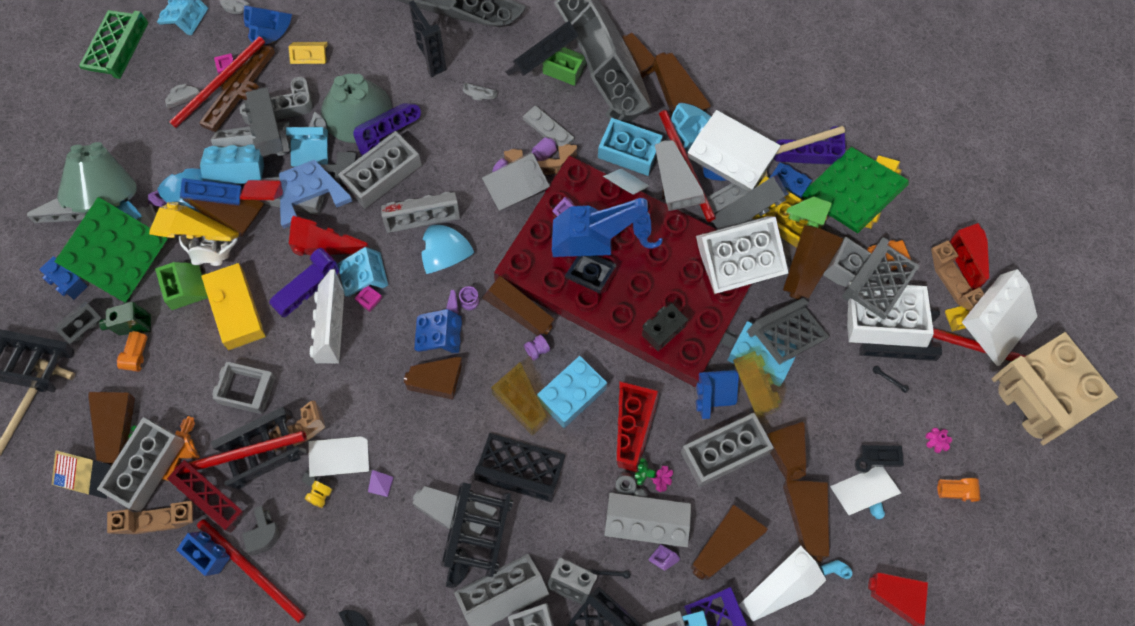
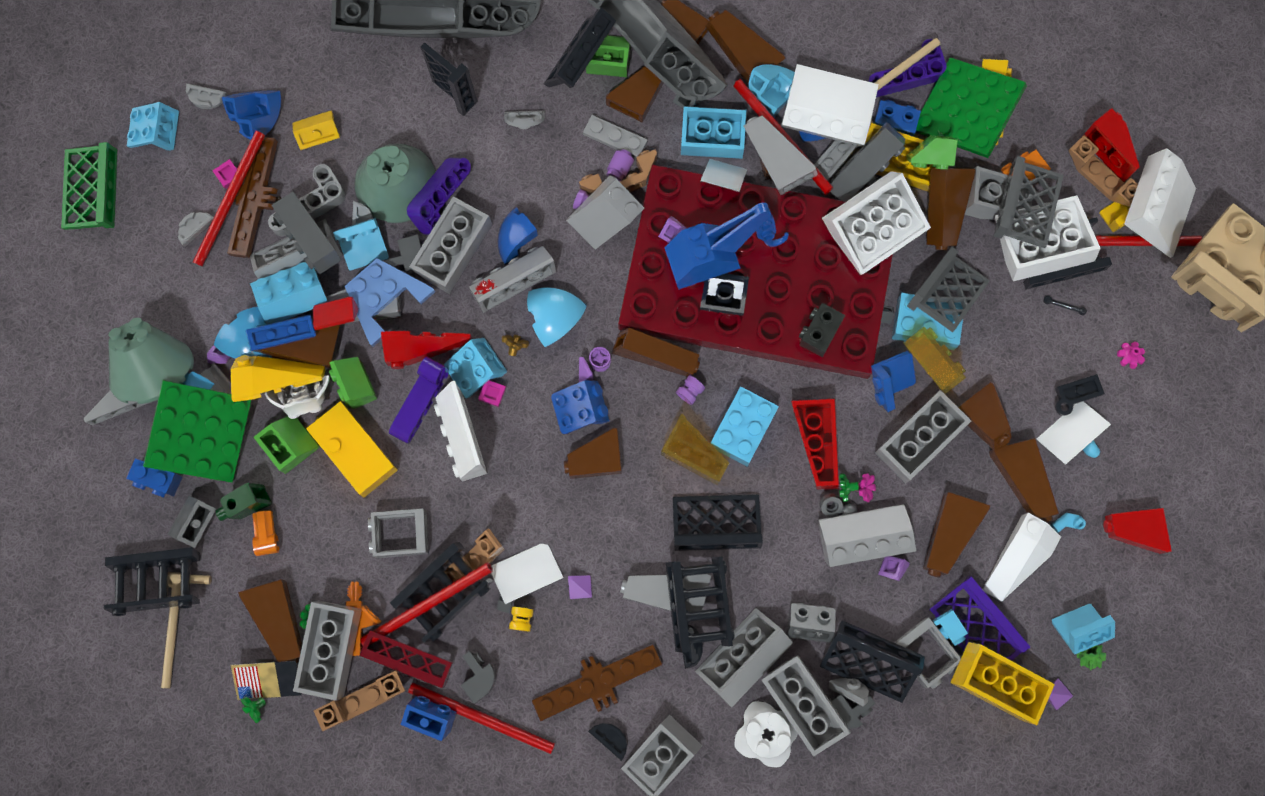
camera: 15 degrees left, 10 degrees up
(60, 495) = (253, 708): none -> green plant
(255, 251) = (353, 382): none -> bright green slope
(363, 573) = (596, 683): none -> reddish brown hinge
(402, 264) = (514, 343): none -> pearl gold plant
(435, 176) = (513, 234): none -> blue brick
(577, 100) = (635, 94): none -> reddish brown slope
(626, 574) = (861, 596): black hinge -> none
(959, 489) = (1169, 400): orange piece -> none

